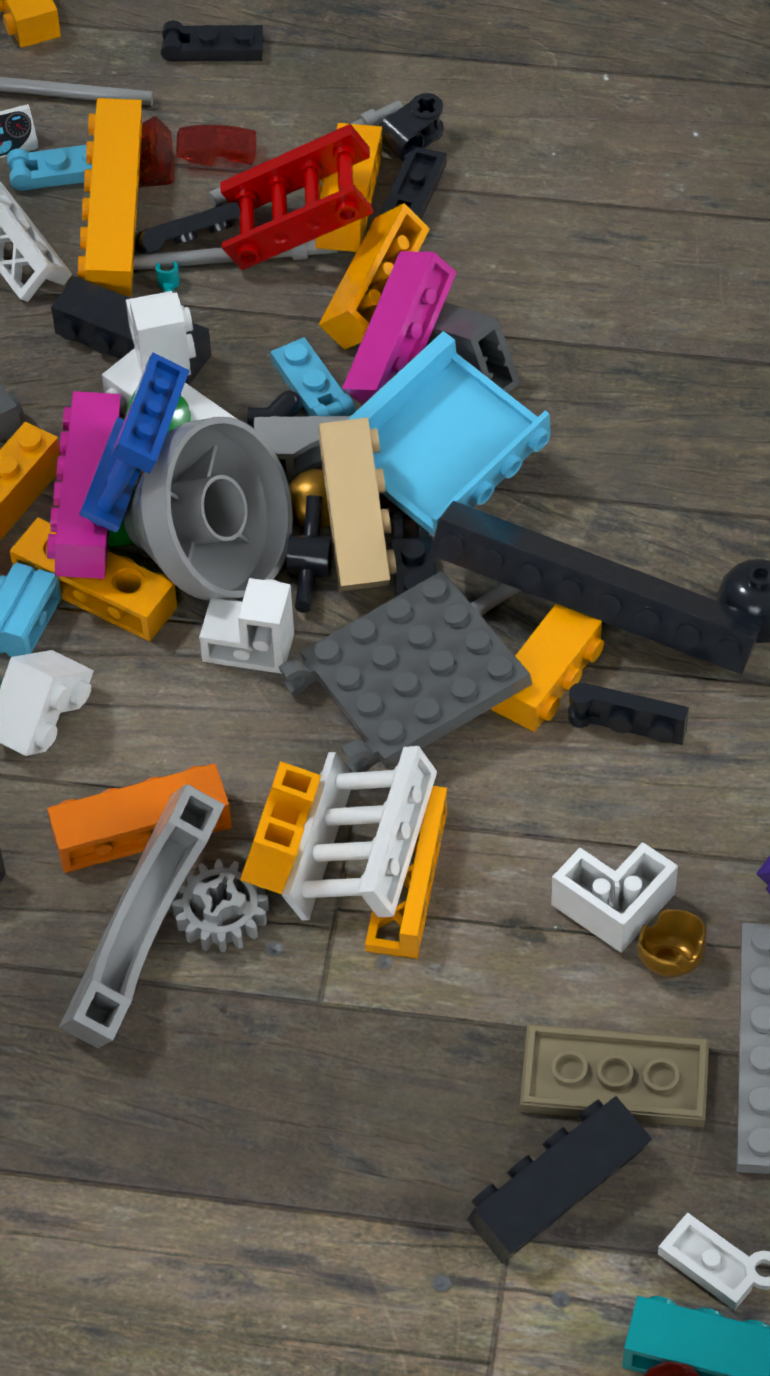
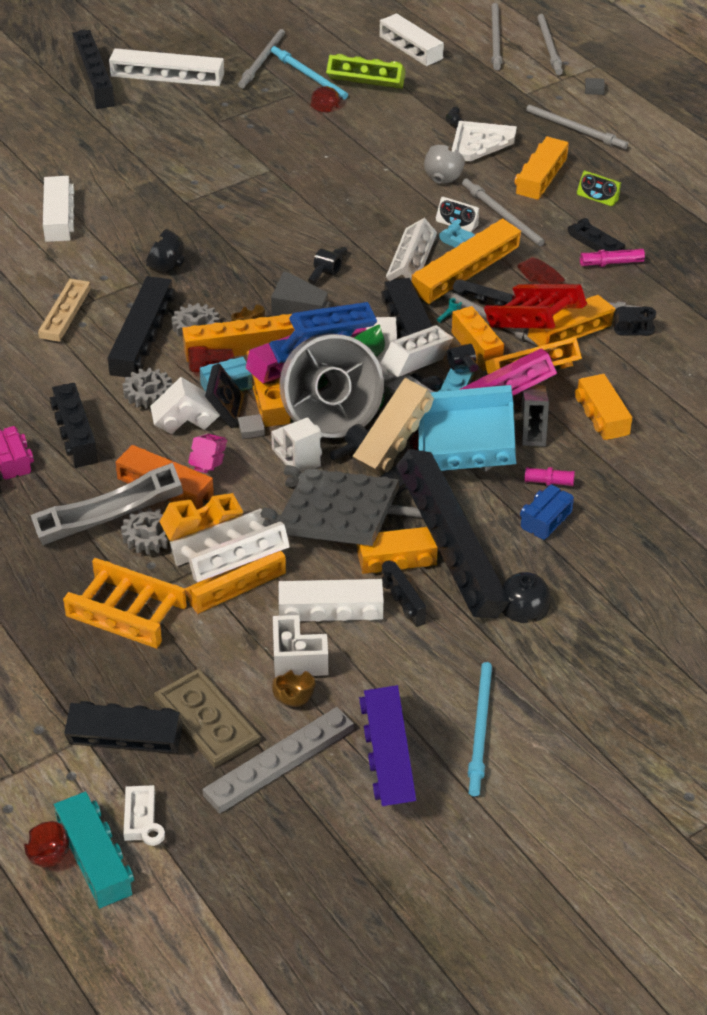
camera: 45 degrees right, 10 degrees down
(68, 636) = (224, 395): none -> black tile
(140, 652) = (251, 426): none -> light grey tile
(156, 154) = (508, 264): clear red slope -> none
(160, 327) = (402, 312): white brick -> none
(162, 733) = (207, 452): none -> dark pink brick
(239, 373) = (416, 351): none -> white brick
(261, 64) = (612, 257): none -> dark pink pin
(263, 298) = (471, 328): none -> light orange brick
(295, 339) = (462, 357): none -> black piece
(322, 1064) = (125, 622): none -> light orange fence
(416, 180) = (604, 343): black plate -> none
(528, 275) = (603, 407): none -> light orange brick
(560, 798) = (332, 599): none -> white brick
(585, 420) = (549, 476): none -> dark pink pin
(643, 469) = (546, 511): none -> blue brick

